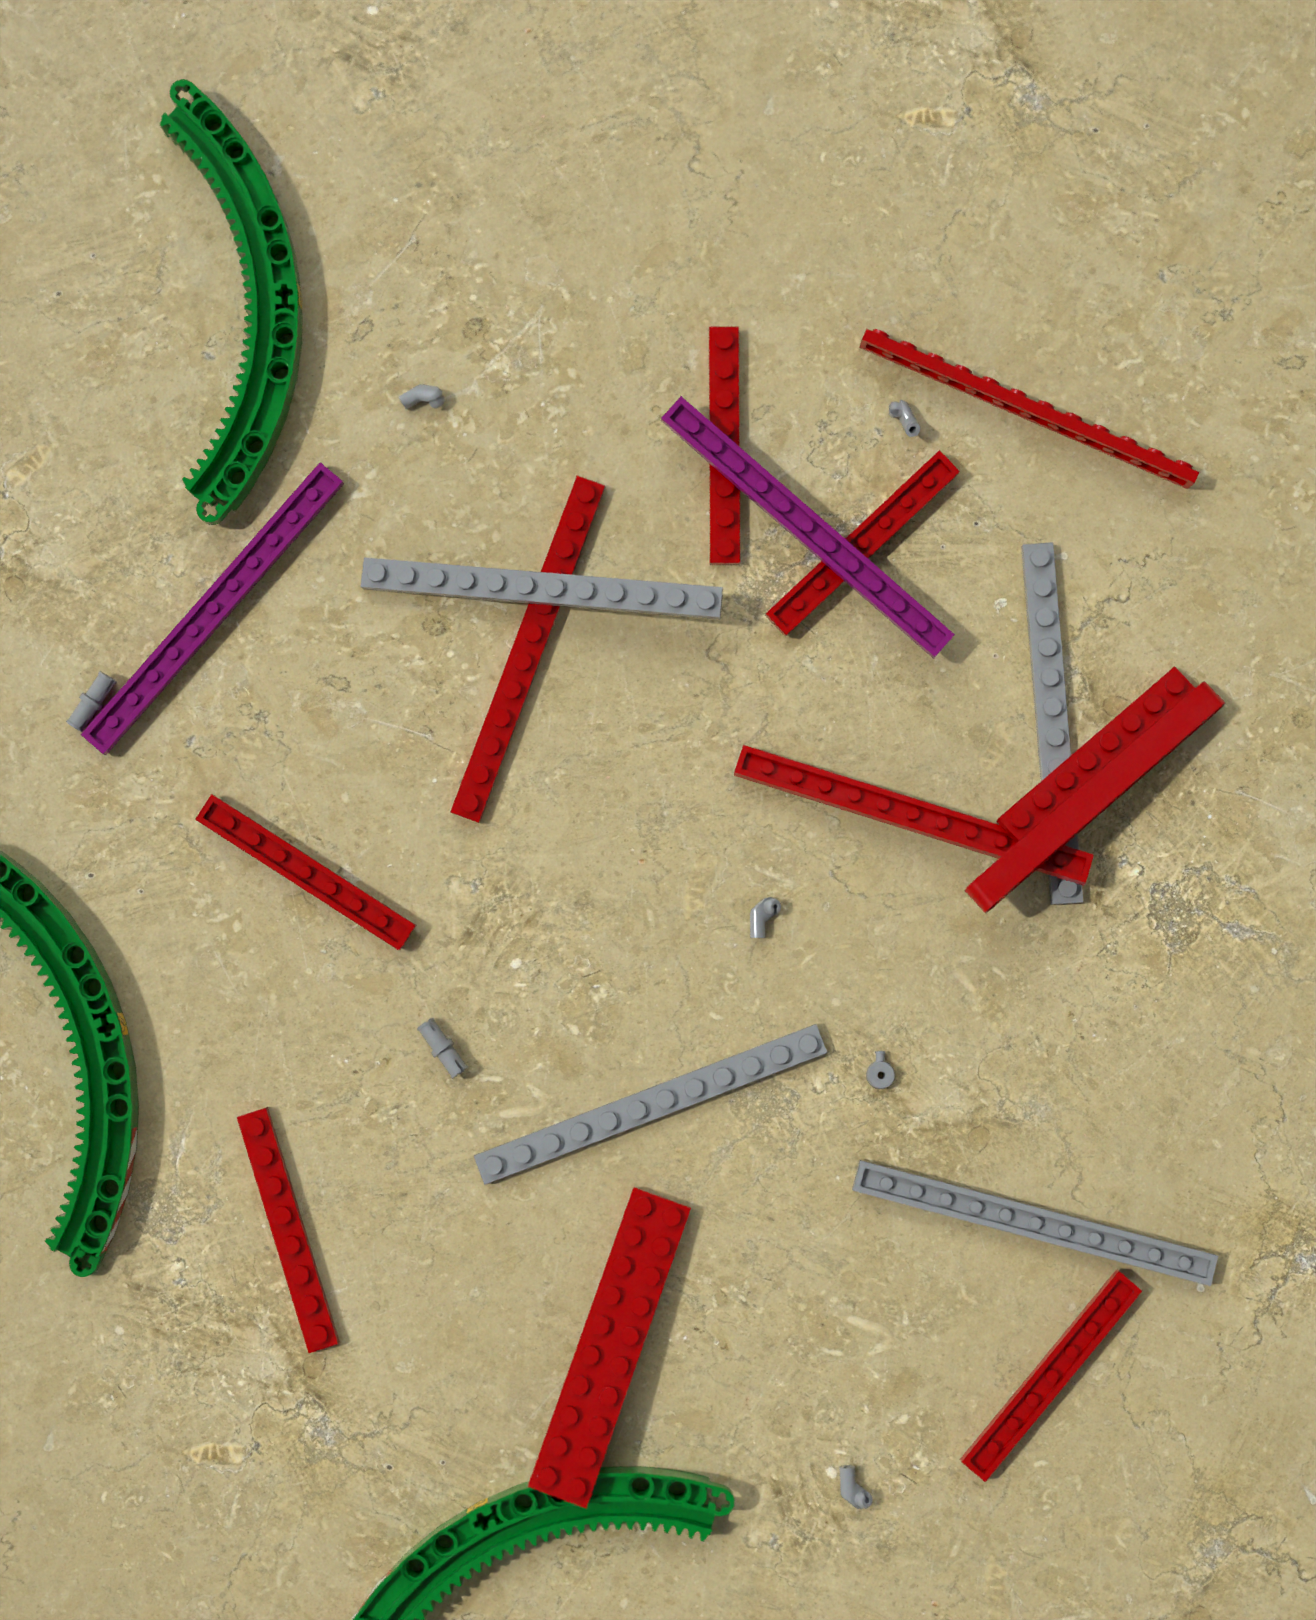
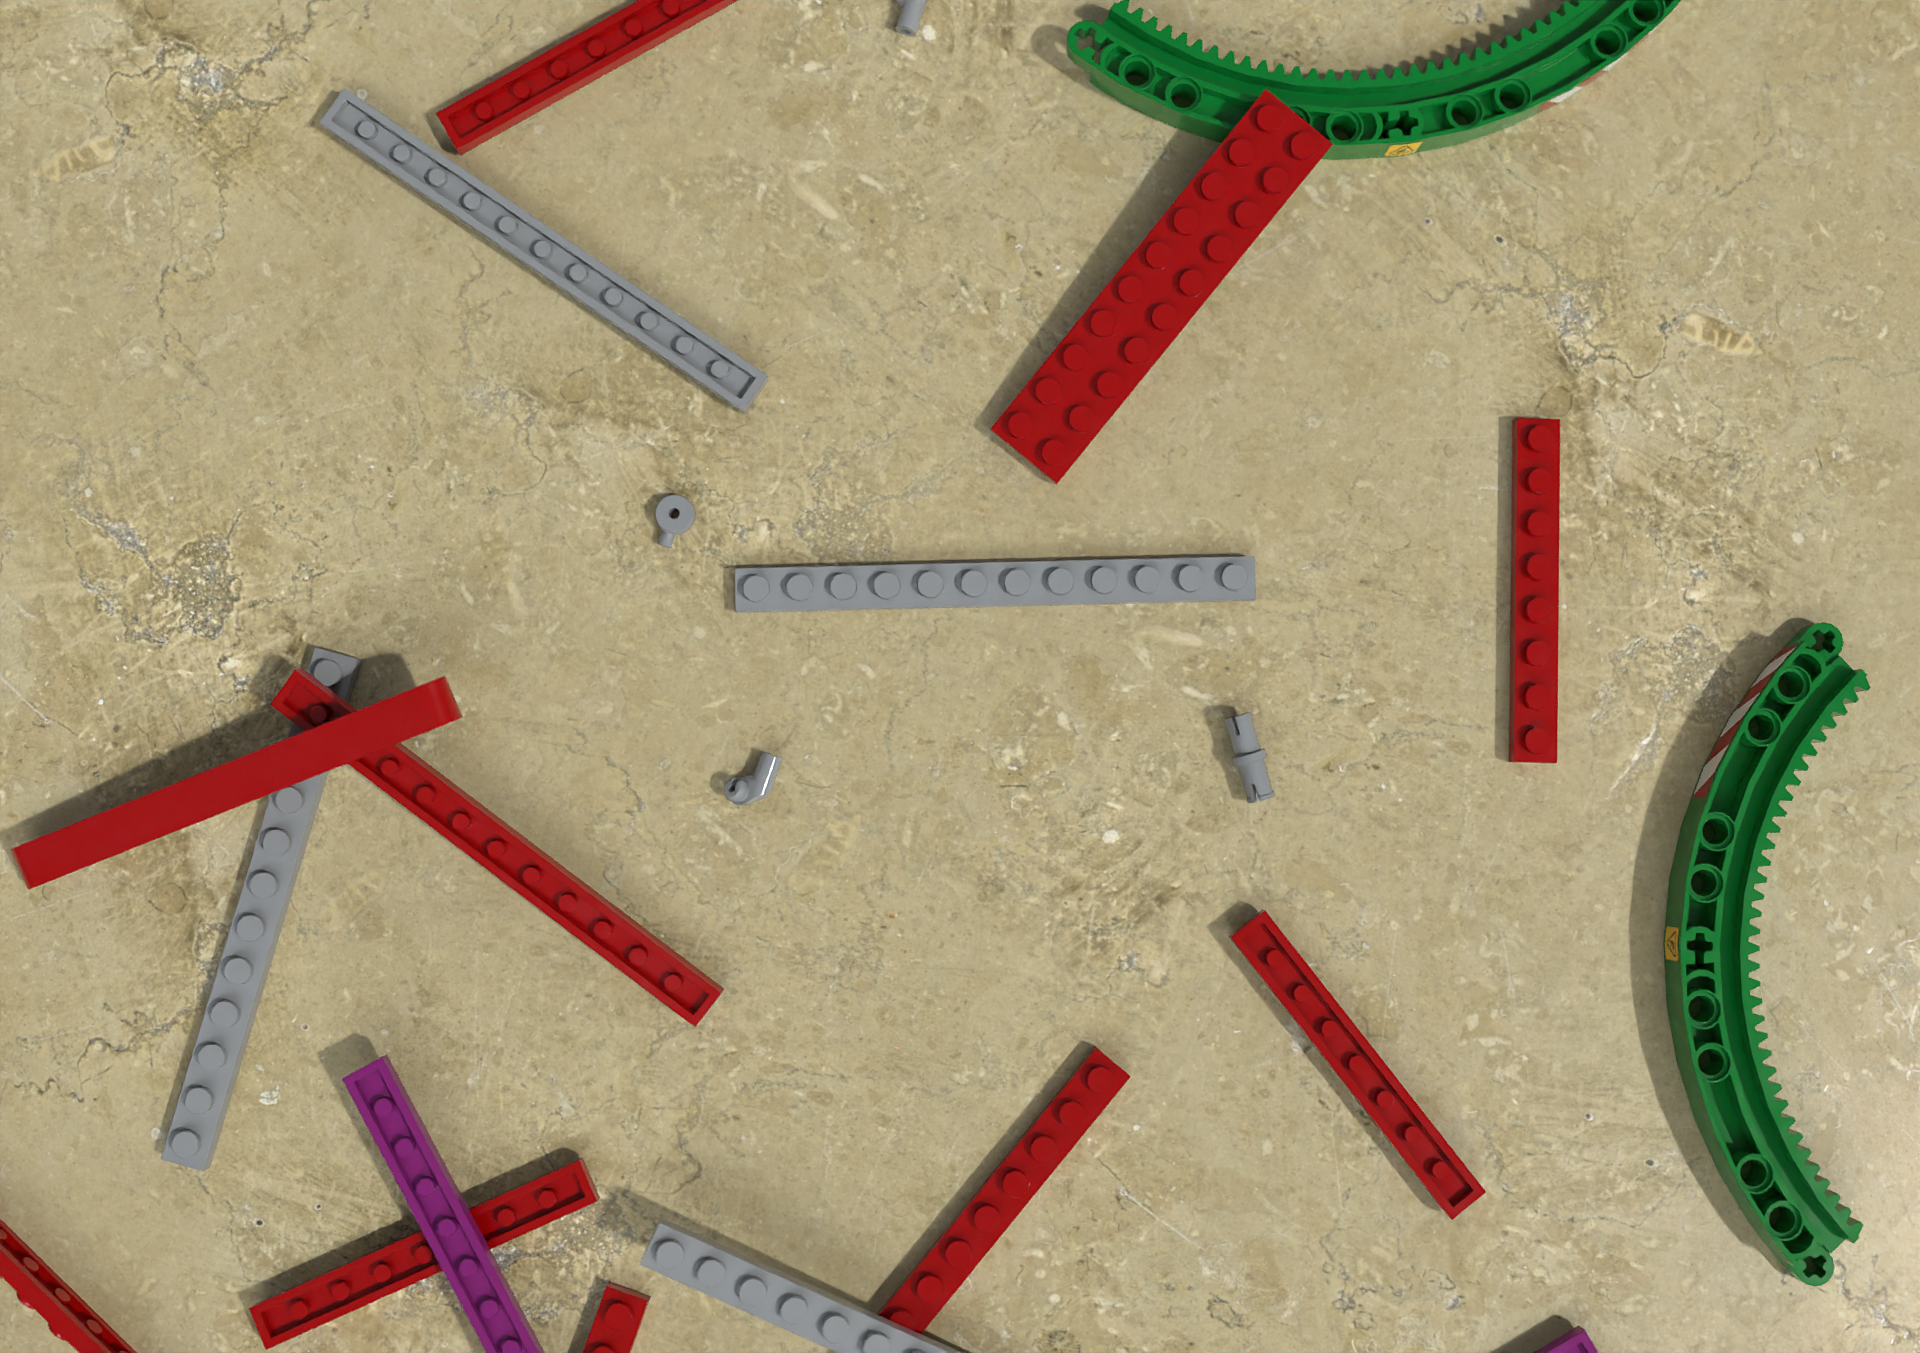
camera: 165 degrees left, 0 degrees up
(1095, 754) = (216, 841): red plate -> none

